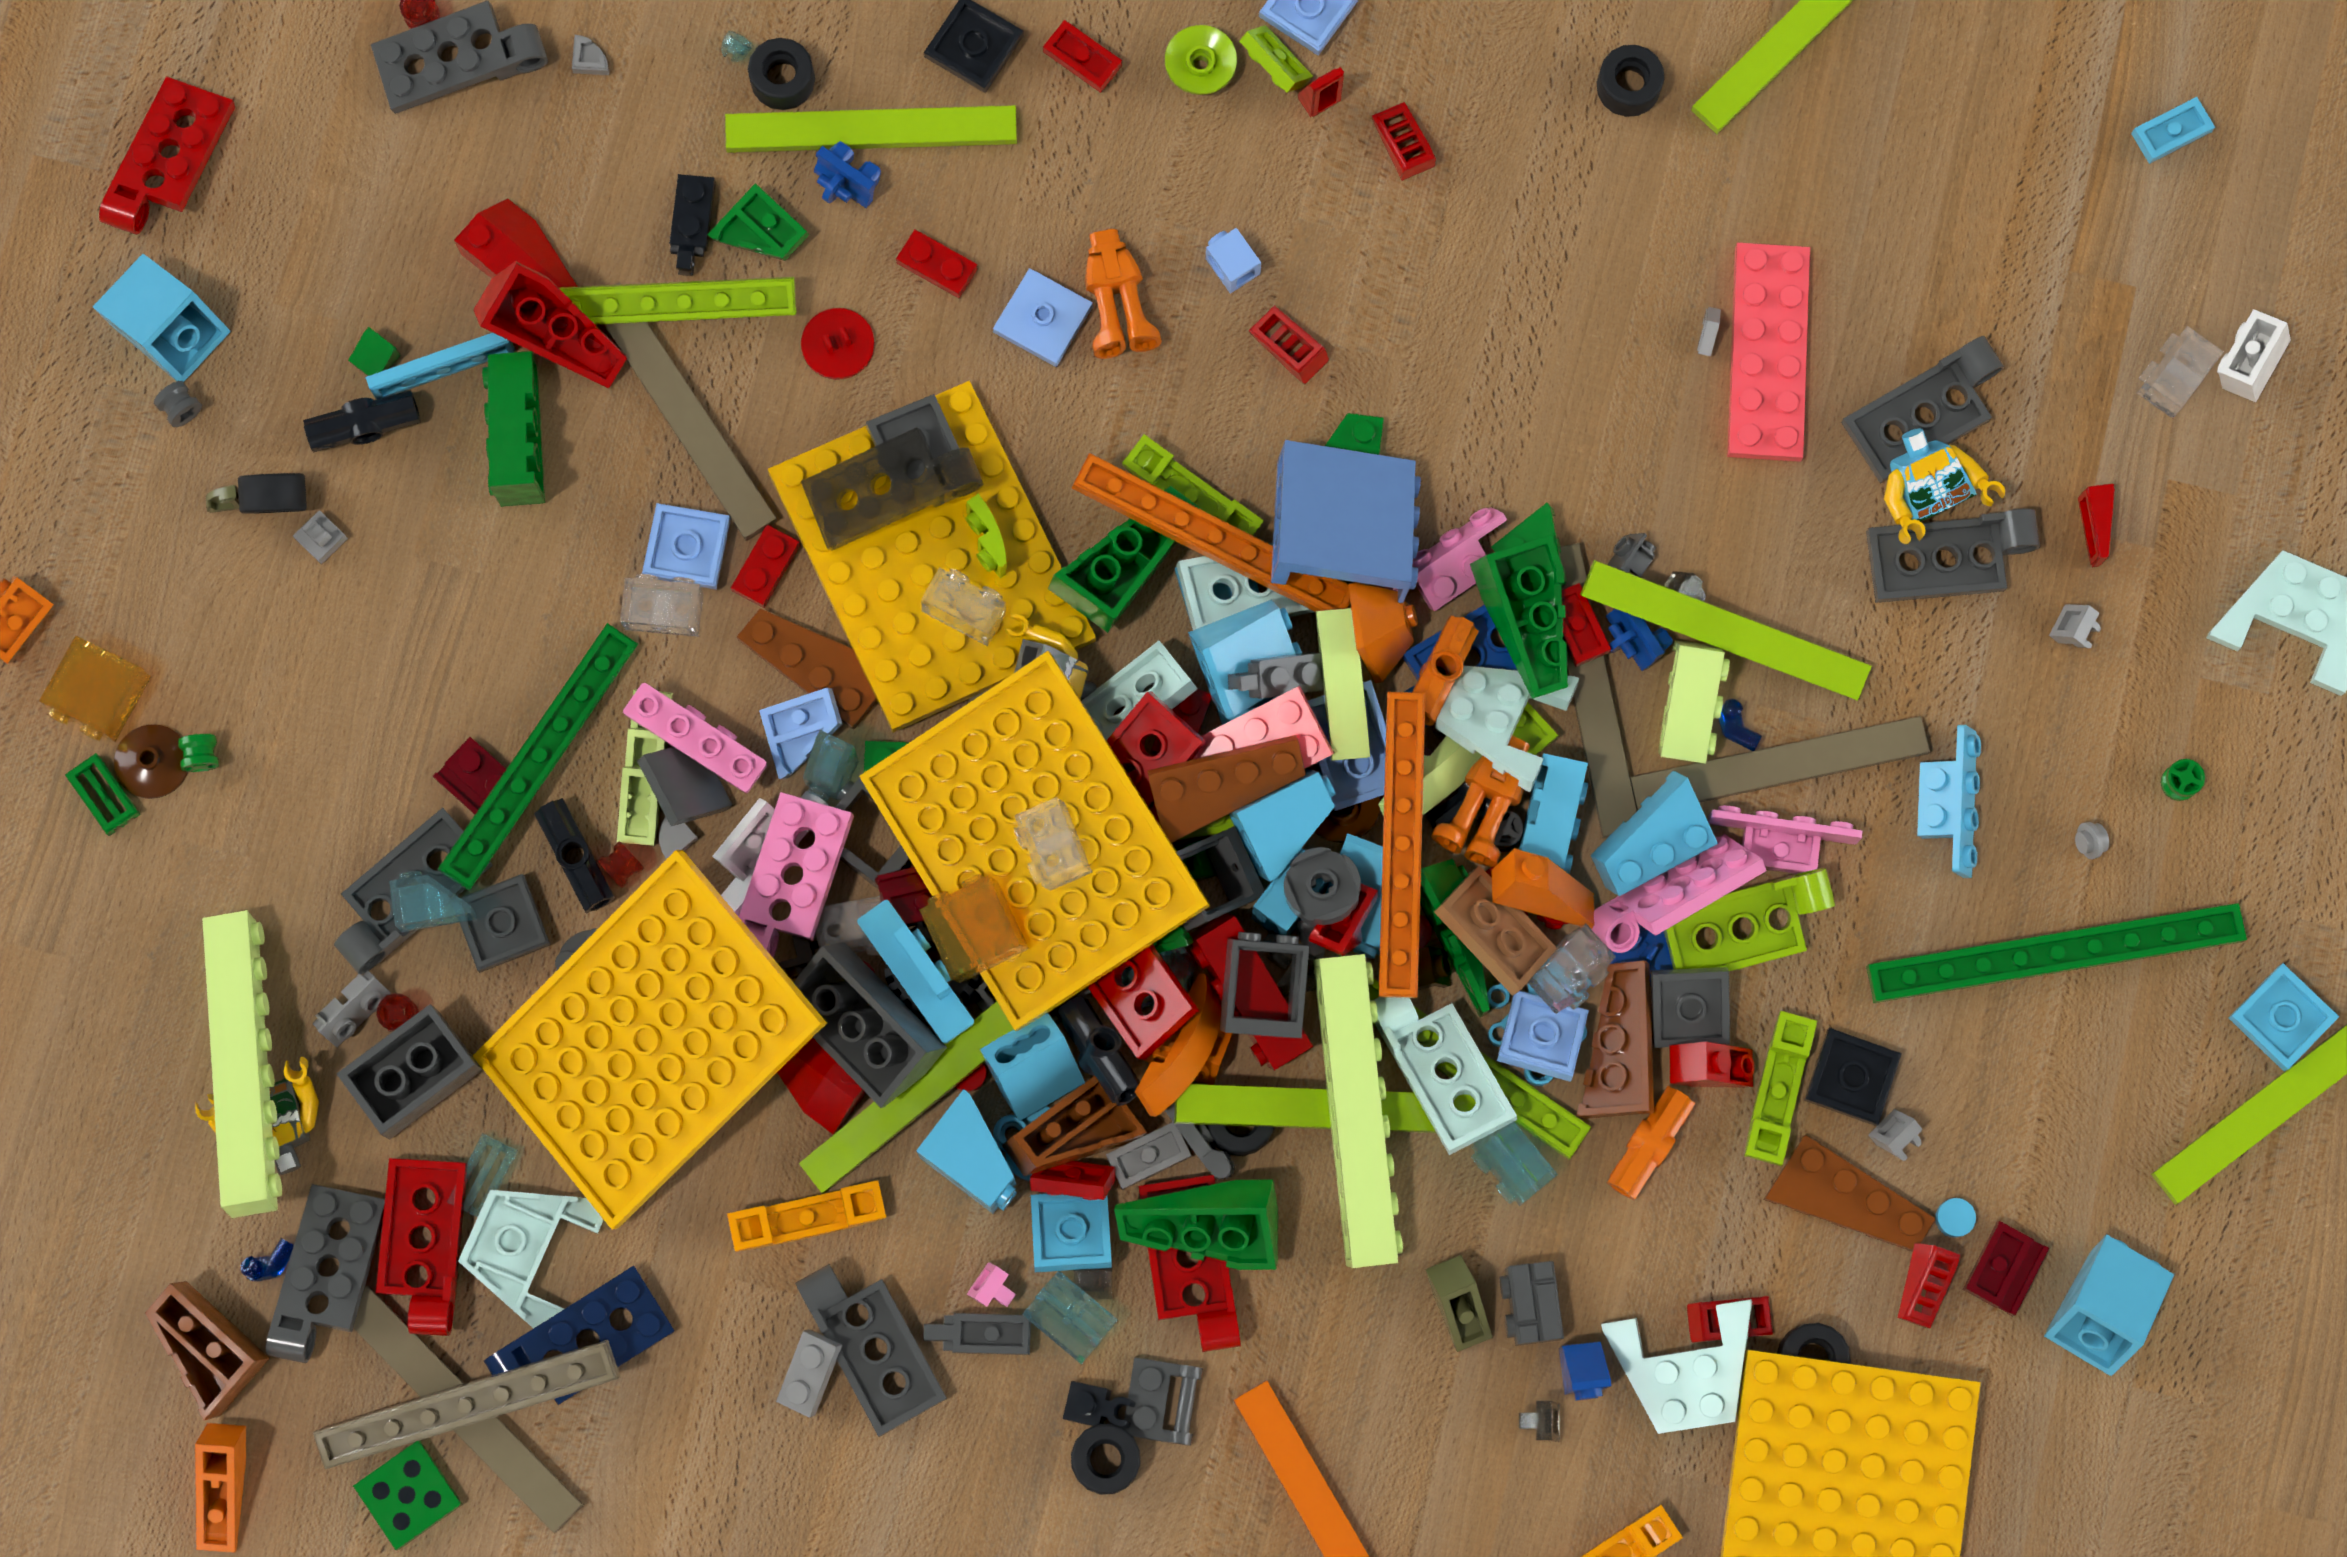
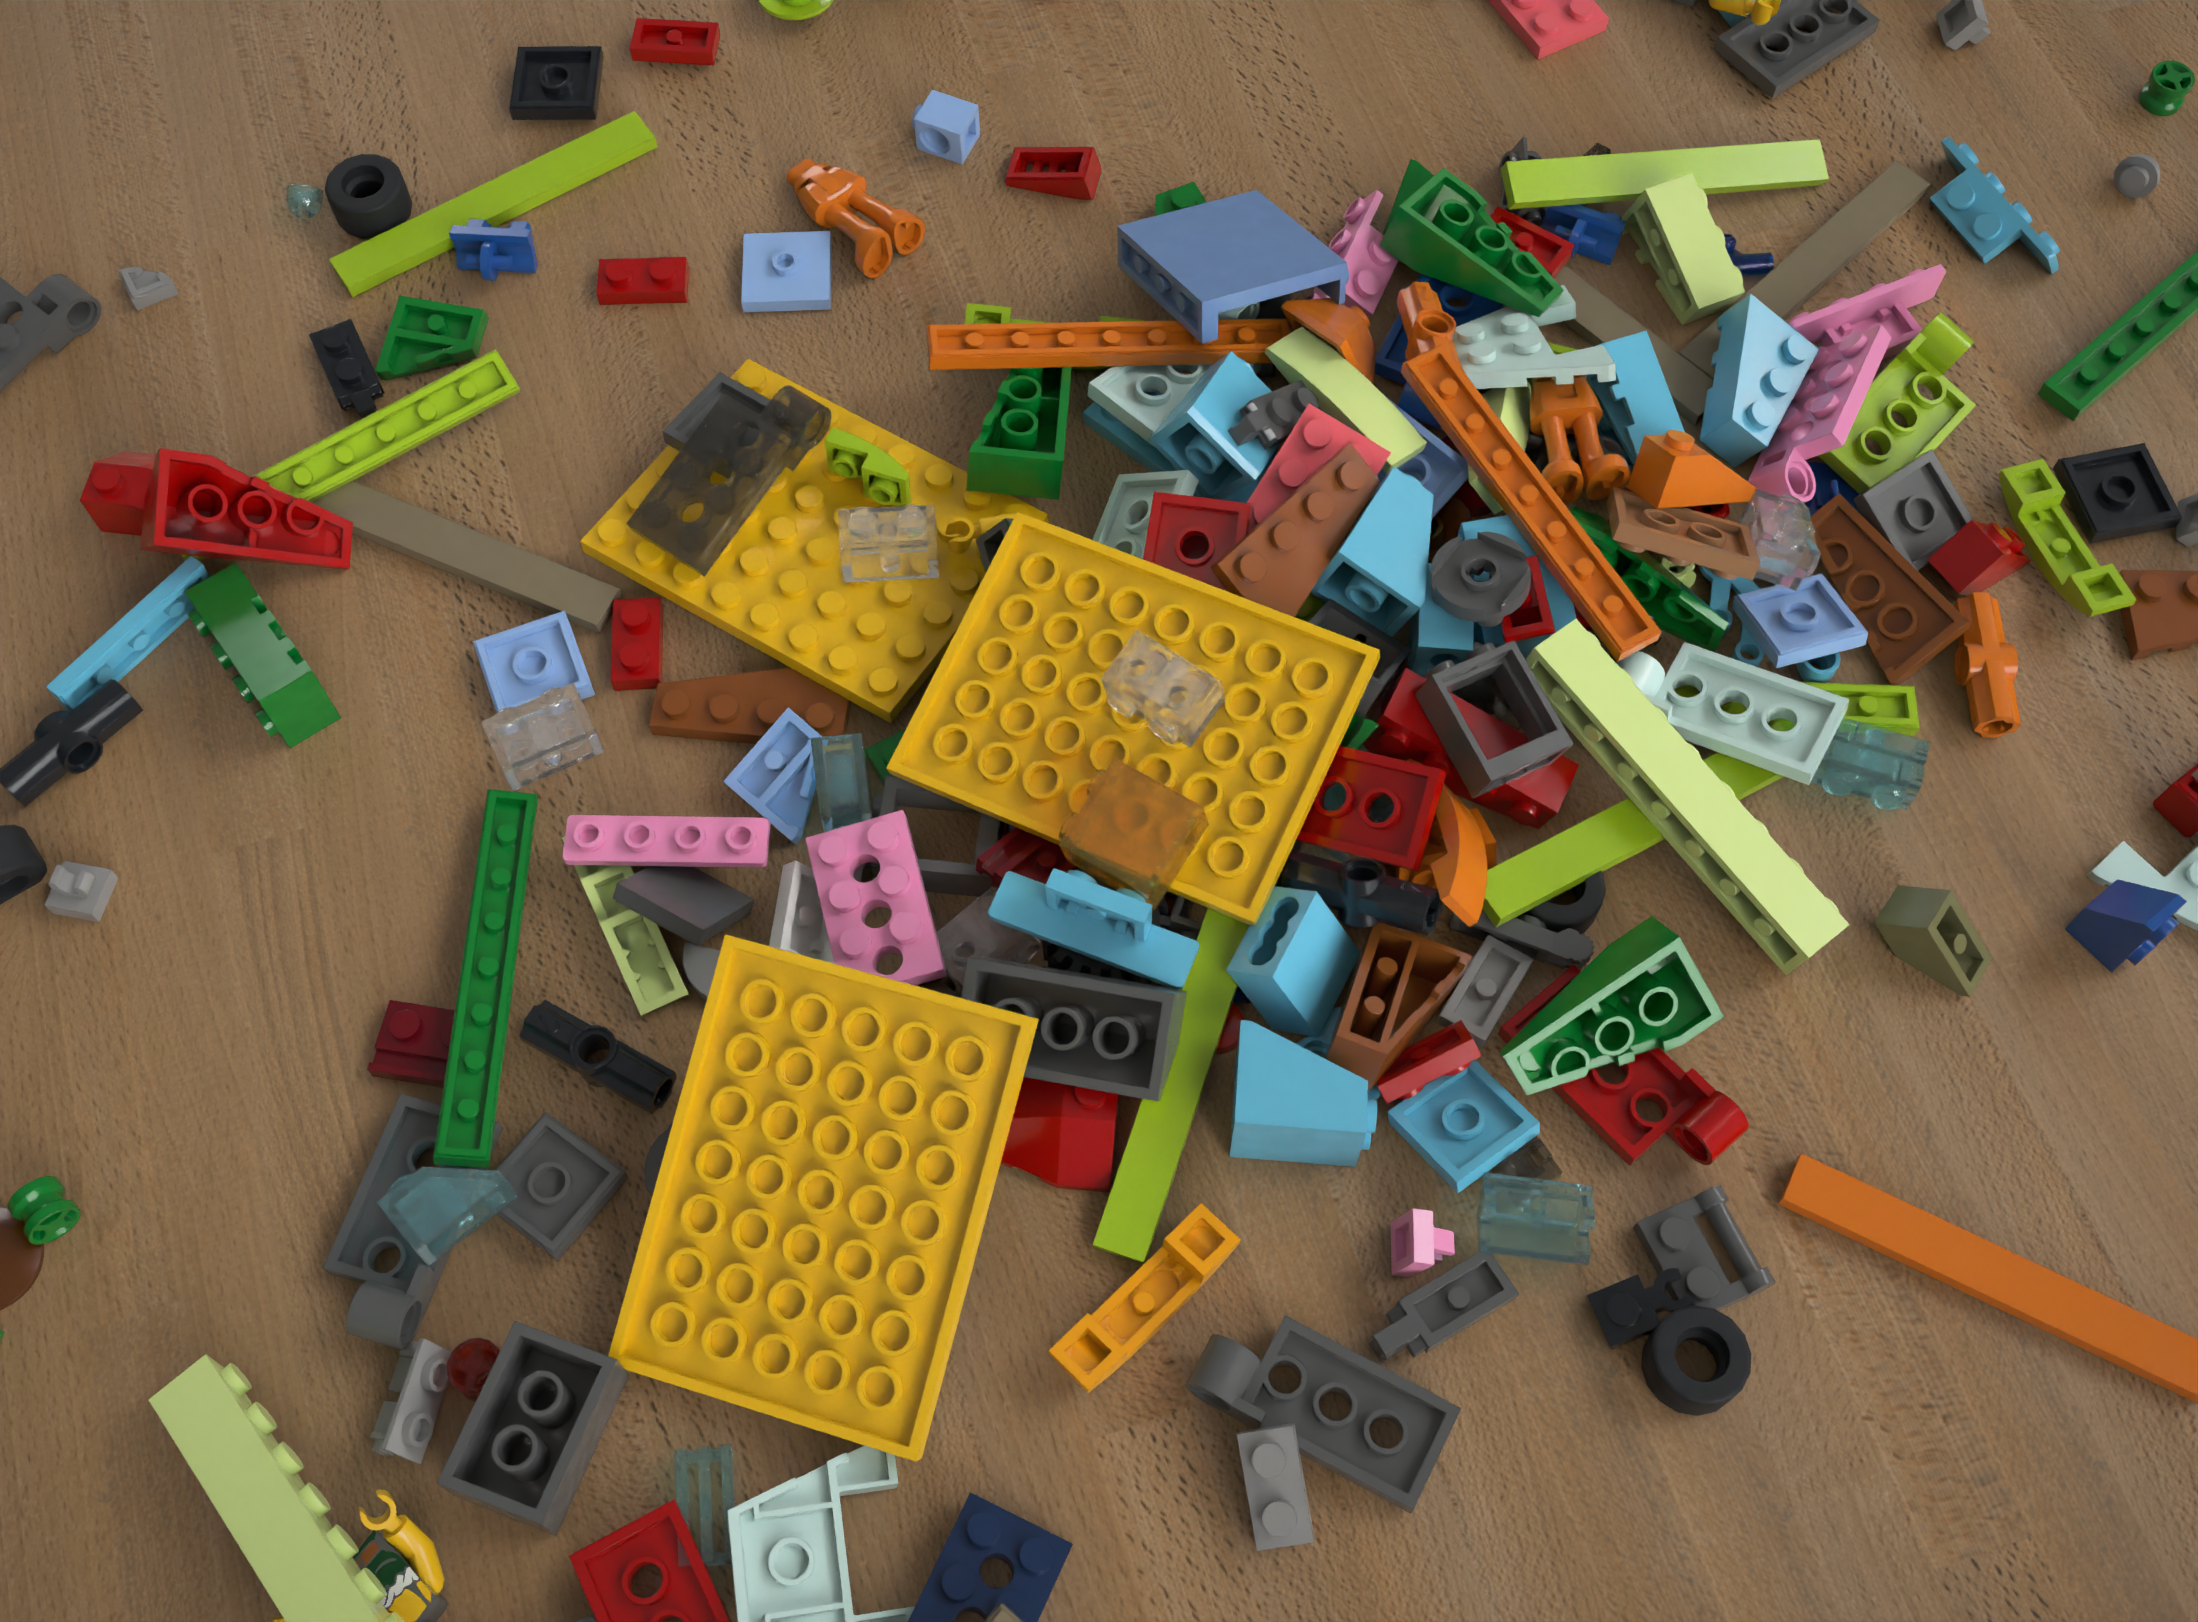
camera: 30 degrees left, 15 degrees down
(373, 353) = (41, 665): green slope -> none
(620, 864) = (661, 1034): clear red wheel -> none
(837, 343) = (582, 402): red piece -> none
(1533, 1303) = (2009, 891): dark grey brick -> none
(1545, 1421) = (2123, 1005): clear smoke tile -> none

